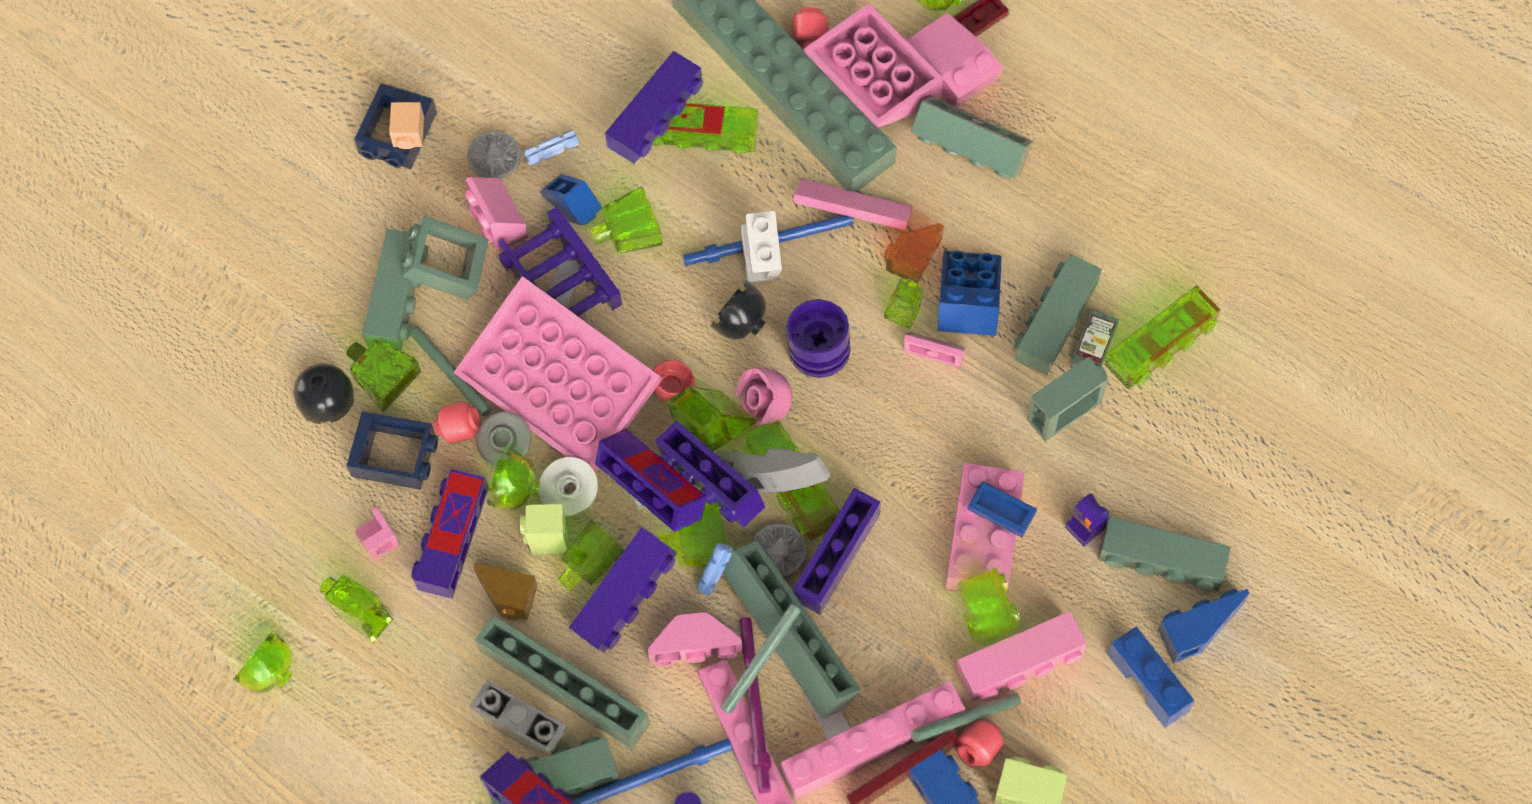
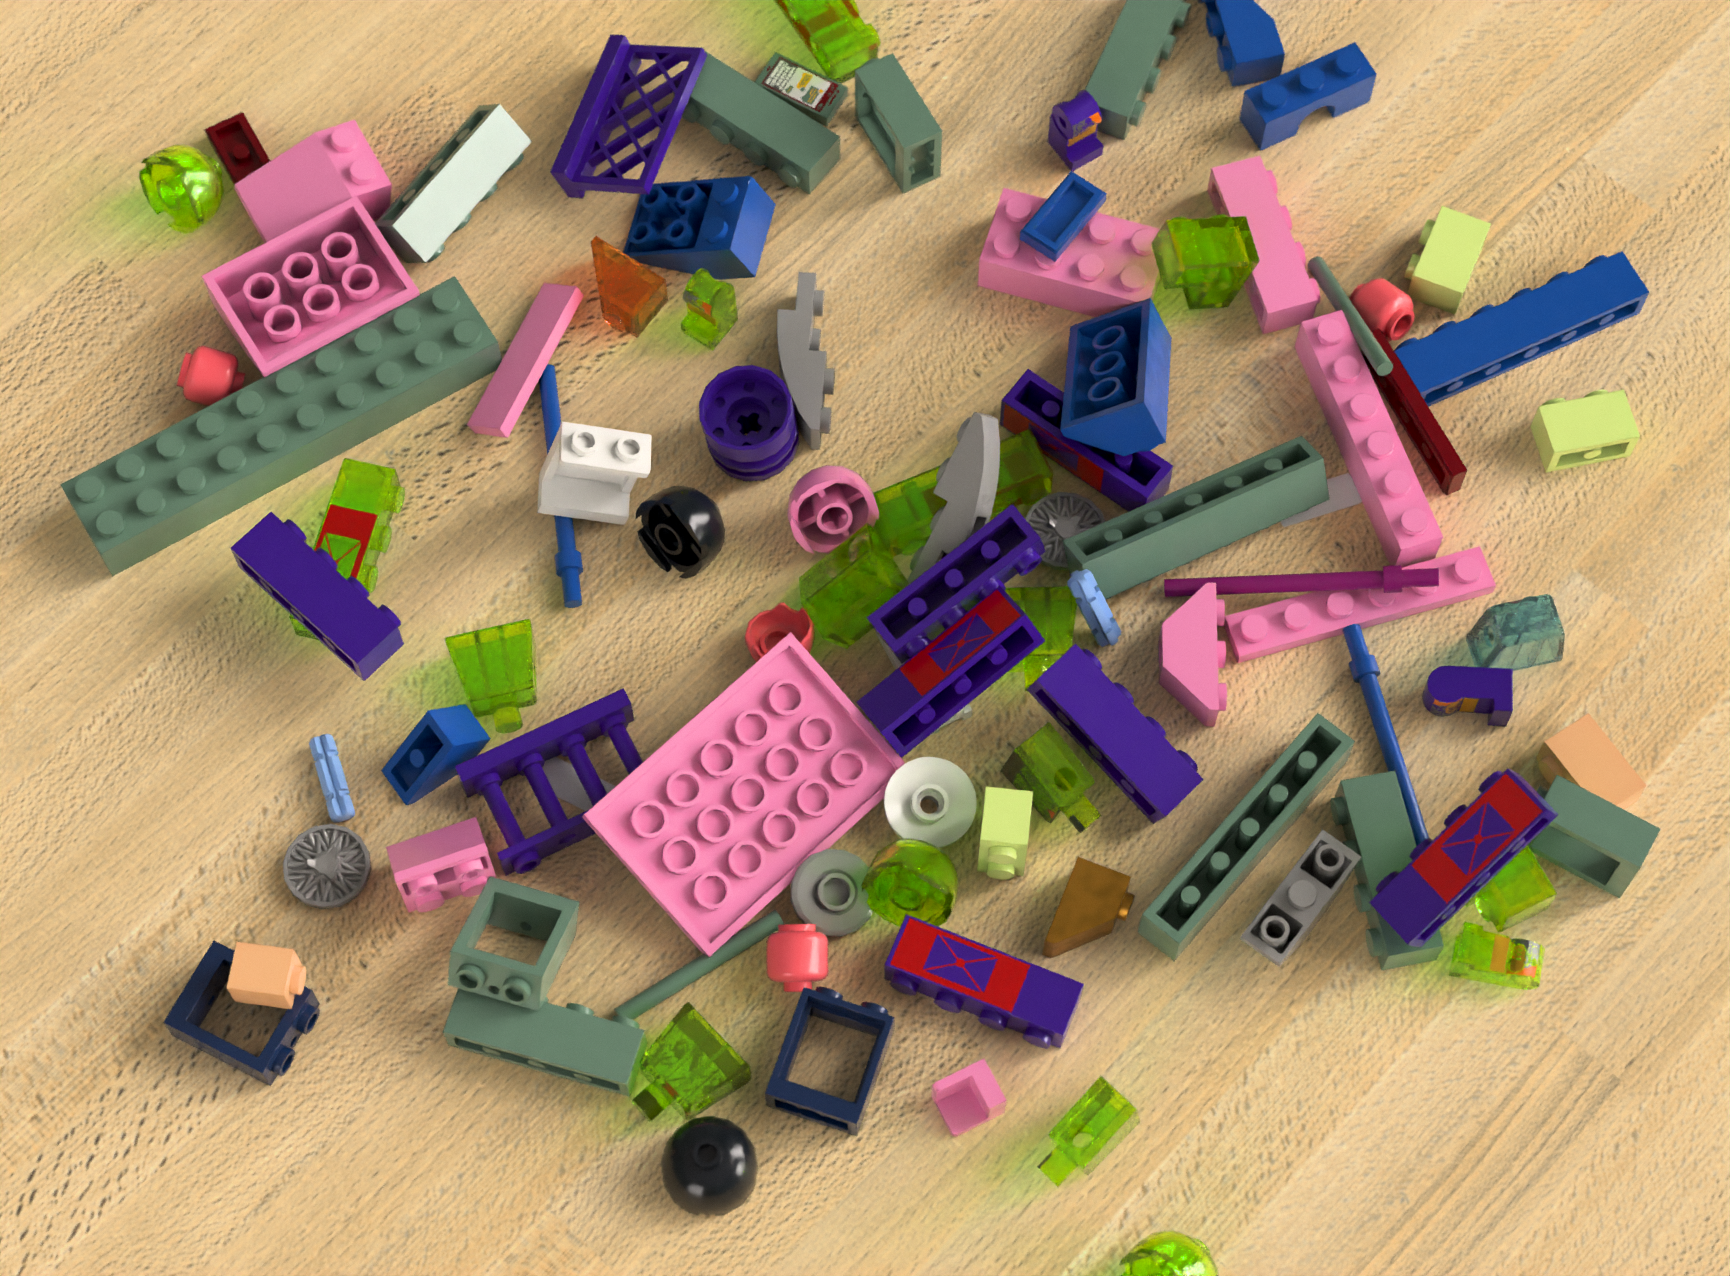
camera: 85 degrees left, 0 degrees up
(760, 658) = (1248, 553): sand green bar -> none
(865, 369) = (803, 364): none -> light grey slope
(880, 561) = (1118, 380): none -> blue slope
(934, 349) = (778, 286): bright pink slope -> none
(1042, 218) = (602, 113): none -> dark purple fence

